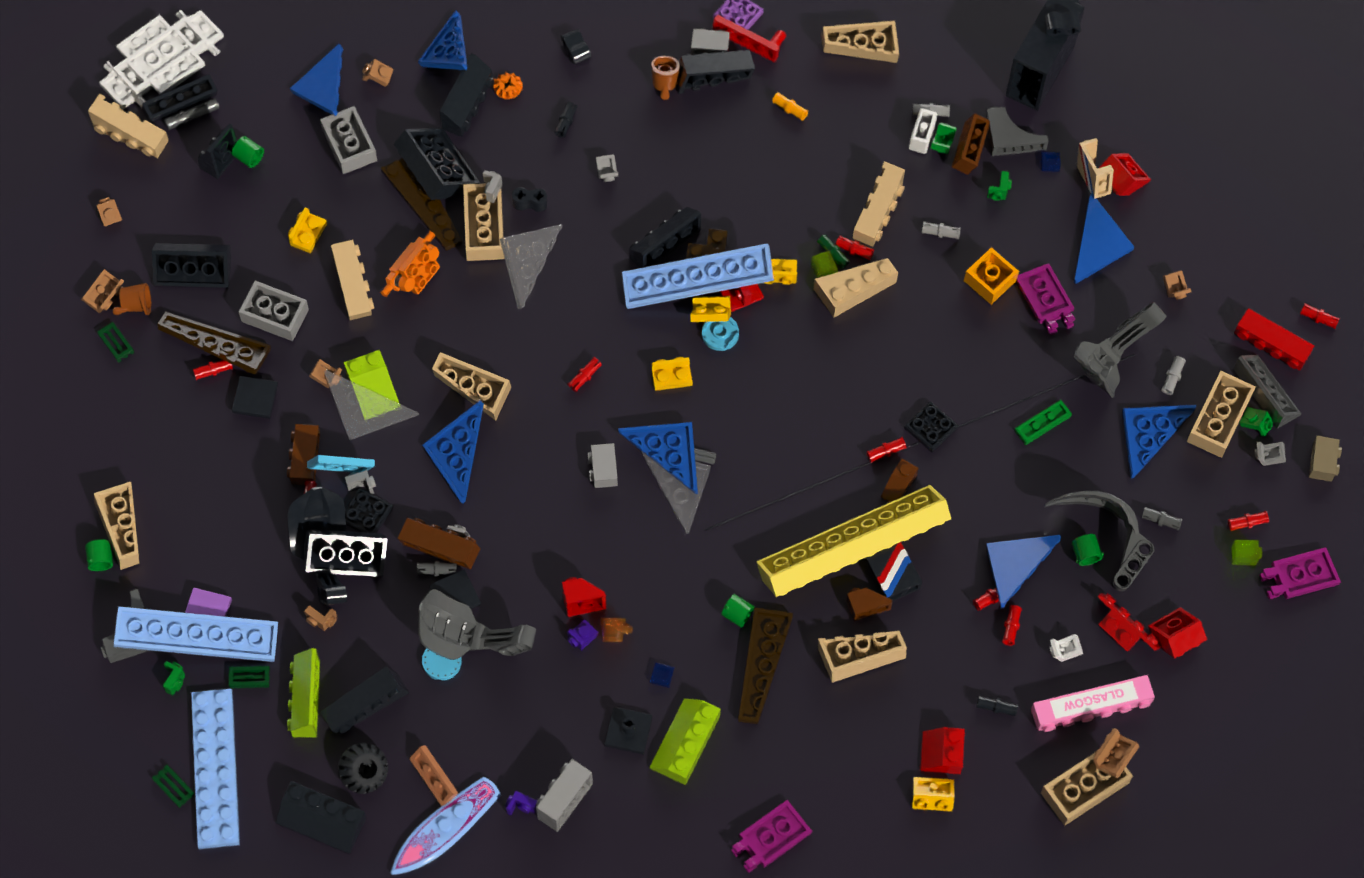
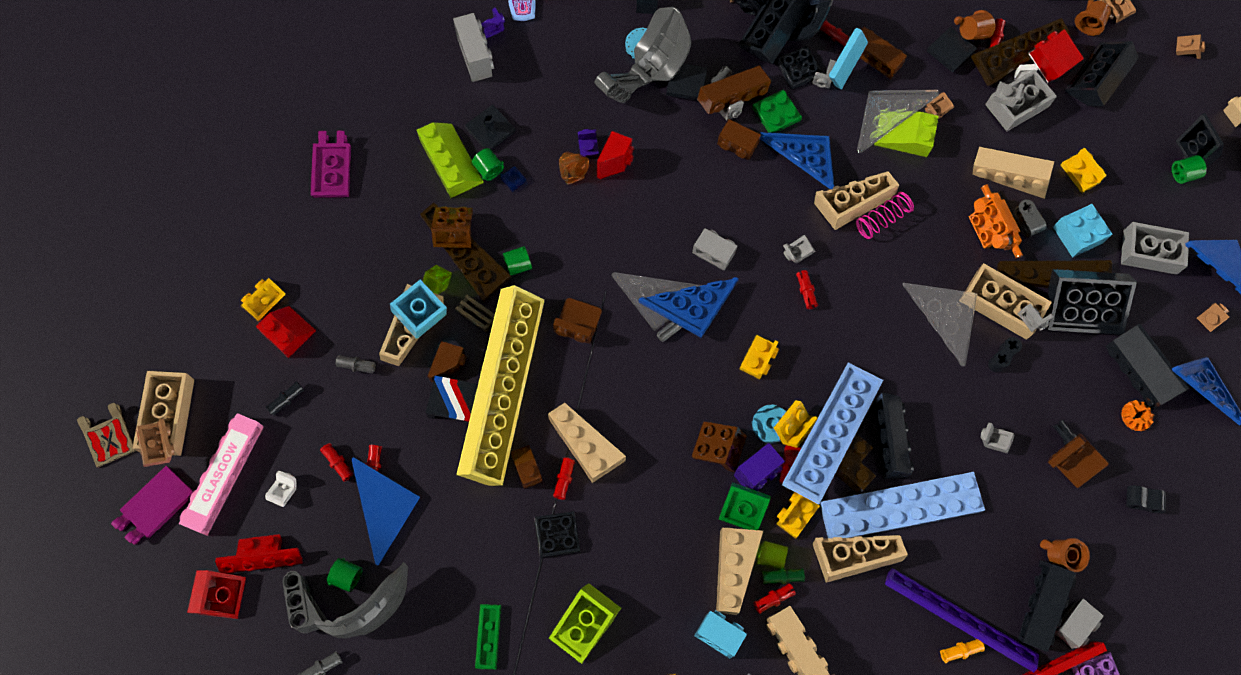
camera: 125 degrees right, 5 degrees up
(204, 307) = (1055, 55): none -> red piece
(219, 386) = (977, 26): none -> dark orange hat
(236, 324) = (1024, 69): none -> white tile
(284, 315) = (1008, 94): none -> light grey bracket
(370, 201) = (1082, 230): none -> medium azure brick
(388, 246) = (1029, 220): none -> dark grey piece
(428, 502) = (777, 112): none -> green plate
(483, 513) = (738, 139): none -> reddish brown brick
(495, 360) = (869, 225): none -> dark pink piece
(553, 401) = (798, 249): none -> light grey bracket
(583, 104) = (1078, 460): none -> reddish brown bracket
(668, 700) = (487, 164): none -> green piece
(715, 204) = (902, 506): none -> light blue plate
(749, 681) = (452, 227): none -> reddish brown bracket
(752, 528) = (577, 320): none -> reddish brown bracket
(768, 119) = (962, 620): none -> dark purple tile
(768, 312) = (759, 468): none -> dark purple brick
(770, 357) = (719, 445): none -> reddish brown bracket
(779, 209) = (851, 556): none -> tan wedge
(805, 305) = (744, 507): none -> green plate
(806, 660) = (437, 279): none -> clear neon green brick
(807, 598) = (463, 303): none -> dark tan tile
(848, 449) = (587, 445): none -> tan wedge
(849, 637) = (418, 309): none -> medium azure brick
(912, 262) = (721, 634): none -> medium azure brick
(925, 673) = (355, 364): none -> flat silver axle
(978, 360) = (584, 622): none -> lime slope
(1140, 818) = (109, 439): none -> flag
(1159, 737) = (153, 505): none -> magenta tile

